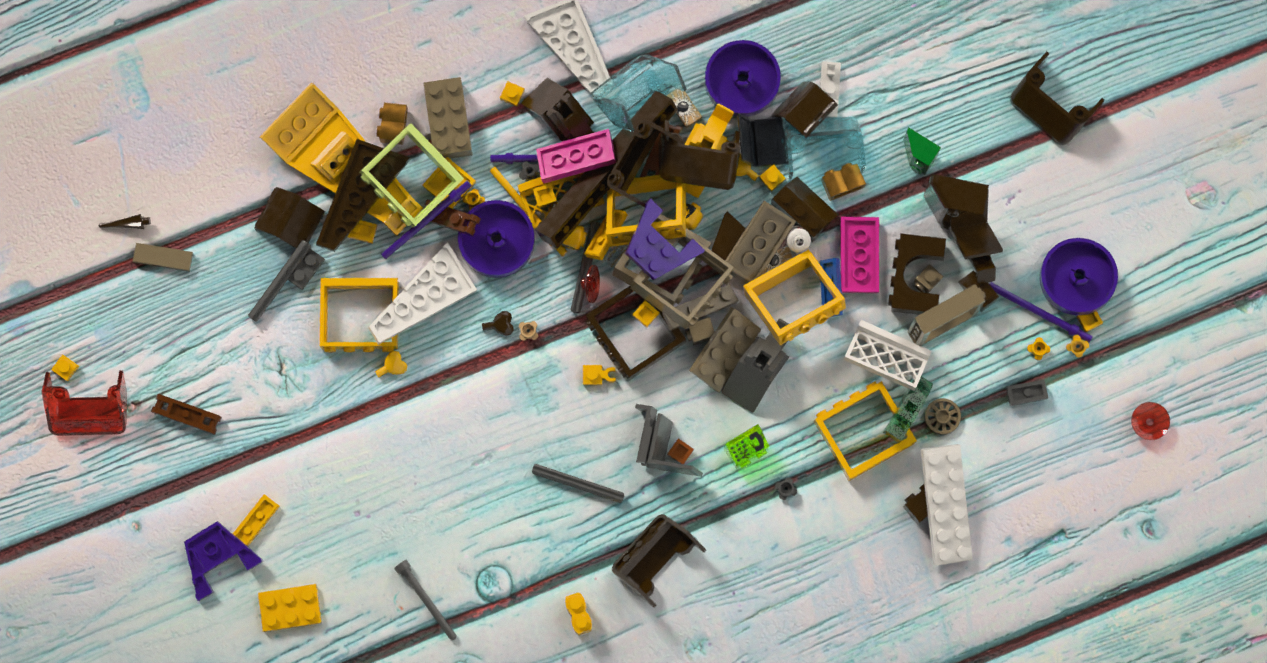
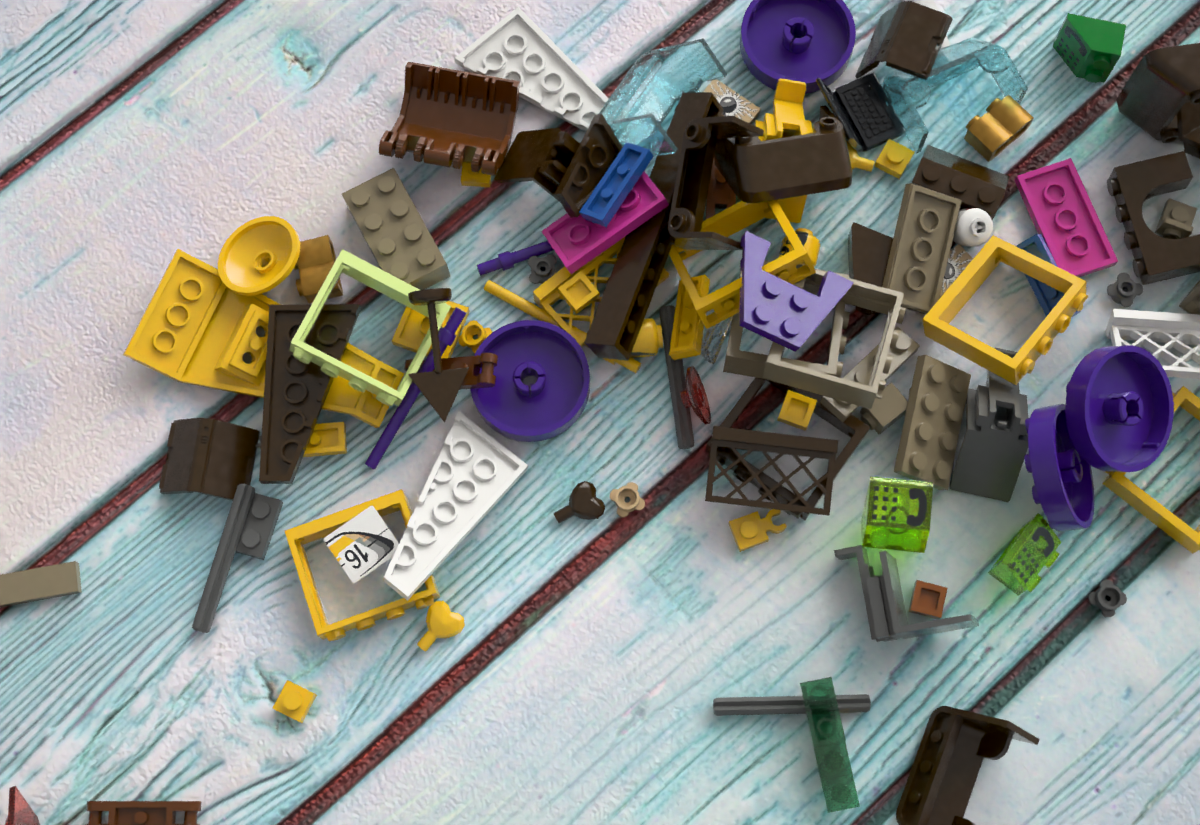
camera: 15 degrees left, 5 degrees down
(293, 379) = (294, 701): none -> yellow plate
(356, 97) = (258, 255): none -> yellow dish
(363, 302) = (362, 544): none -> sticker
(440, 224) = (437, 386): none -> dark brown piece
(508, 58) = (454, 118): none -> reddish brown hinge
(579, 123) = (588, 165): none -> dark brown wing
(589, 138) = (616, 184): none -> blue plate
(589, 512) = (829, 744): none -> clear green slope
(624, 329) = (772, 443): none -> dark brown fence
(680, 396) = (897, 514): none -> clear neon green slope
(783, 403) = (1058, 471): none -> dark purple piece
(826, 396) = (1119, 408): none -> dark purple piece
(876, 315) = (1121, 297): none -> dark grey plate

